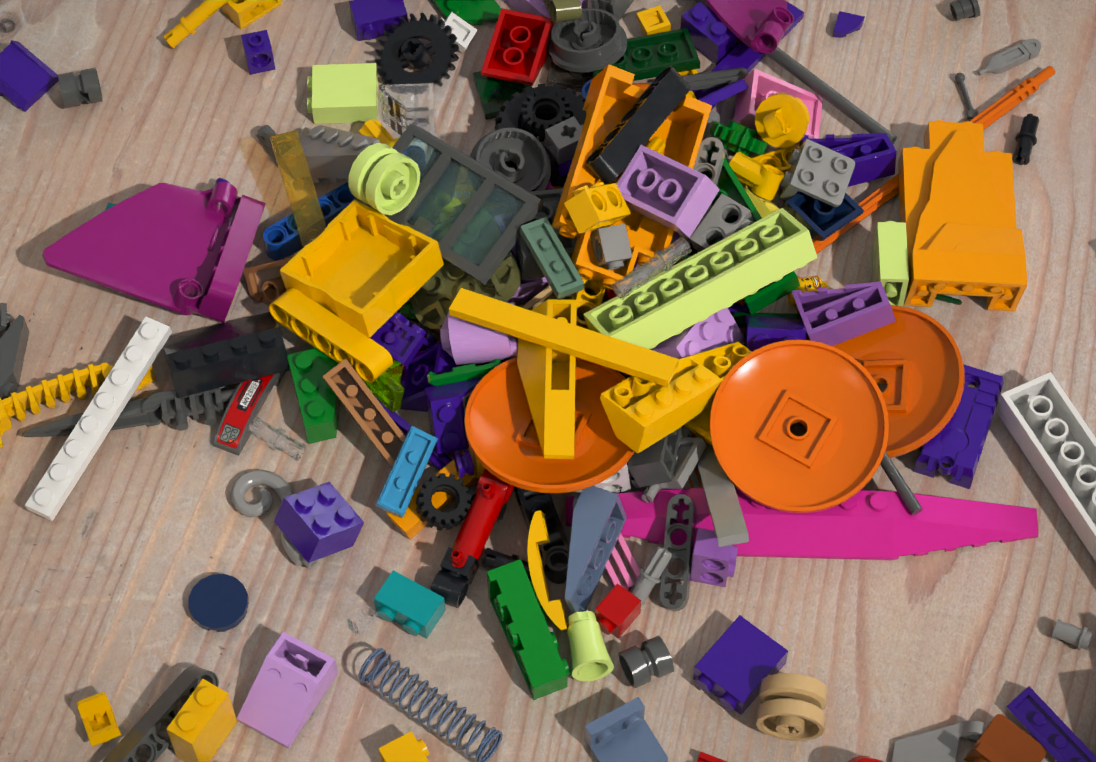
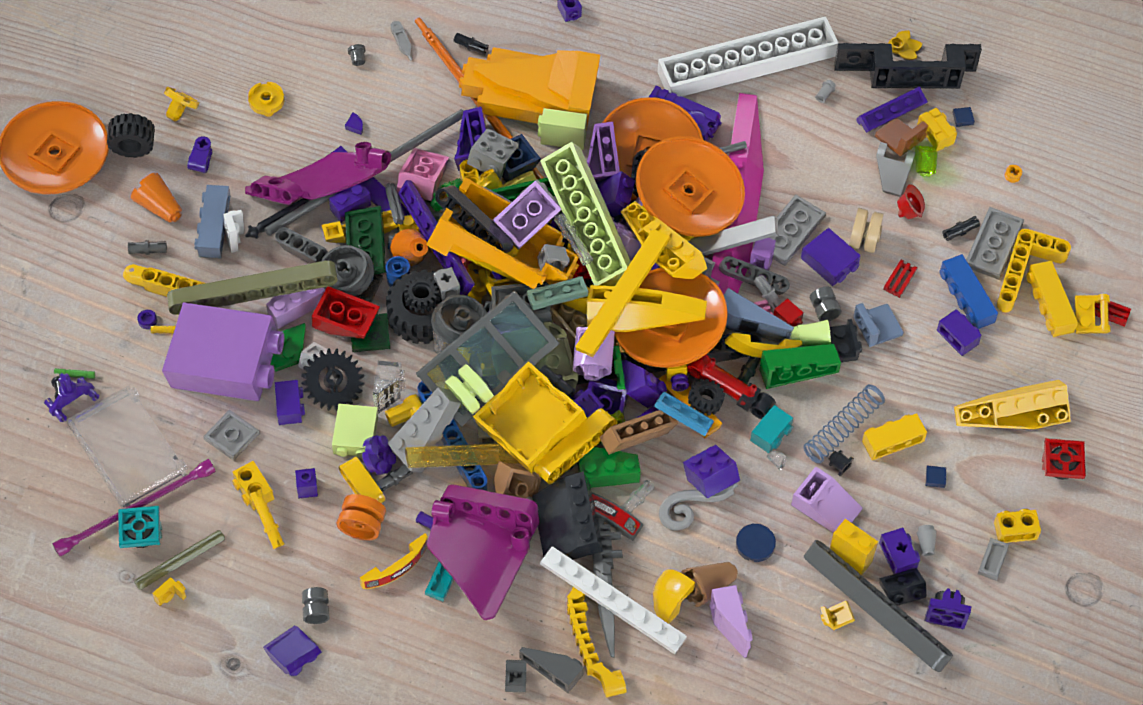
camera: 85 degrees left, 0 degrees up
(76, 570) = (729, 617): none -> lavender slope
(118, 490) = (669, 592): none -> yellow brick
(139, 167) = (375, 578): none -> yellow slope
(141, 537) = (708, 578): none -> medium nougat cone
(205, 111) = (361, 517): none -> orange wheel
(269, 109) = (360, 480): none -> yellow beam
(300, 104) = (378, 446): none -> dark purple plate
(363, 706) = (840, 461): none -> black brick
(427, 294) = (557, 381): none -> black pin
(584, 700) = (845, 341): none -> black bracket
(596, 207) = (536, 252): yellow brick -> none
(782, 120) = (447, 163): yellow tile -> none
(786, 606) = (794, 227): none -> light grey tile
(960, 77) = (442, 70): dark grey hinge -> none

